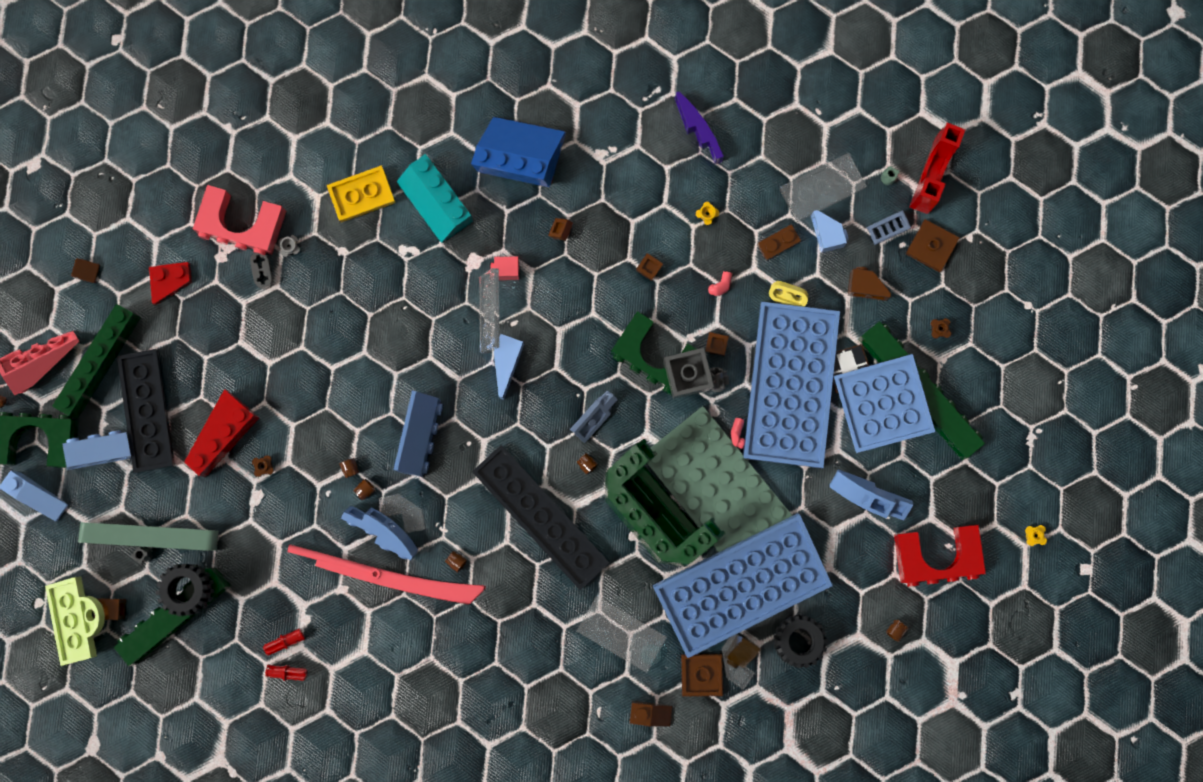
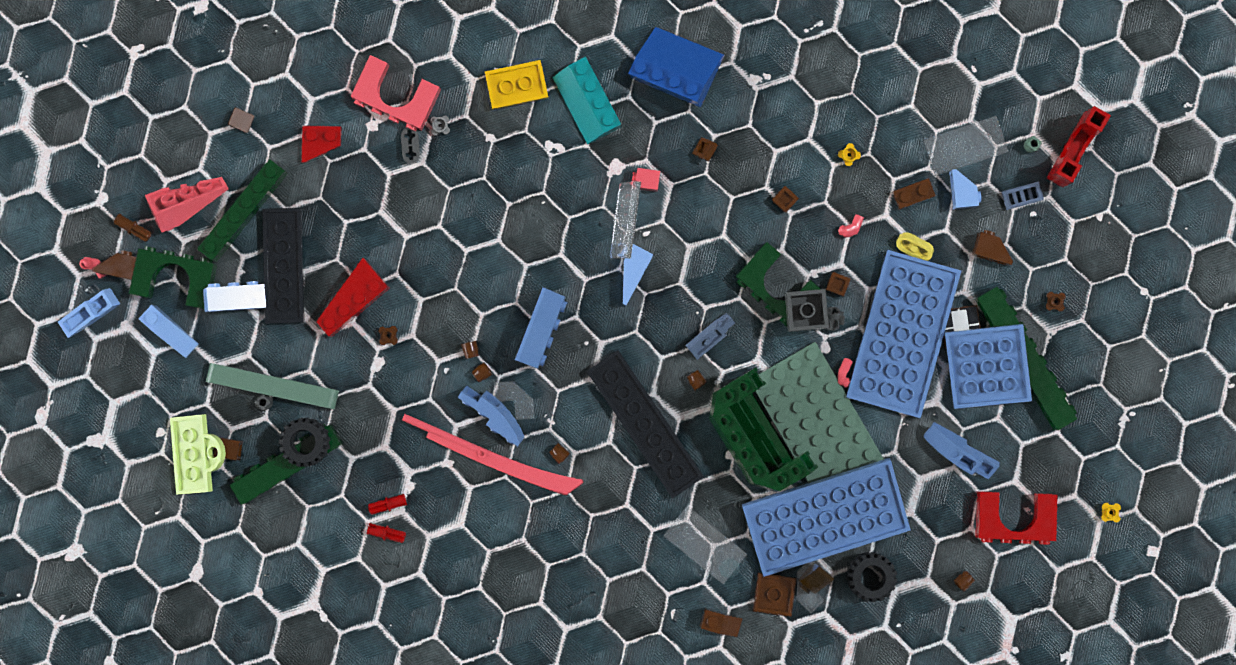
camera: 10 degrees right, 5 degrees up
(695, 123) = (851, 62): dark purple slope -> none
(932, 245) = (1061, 219): reddish brown plate -> none

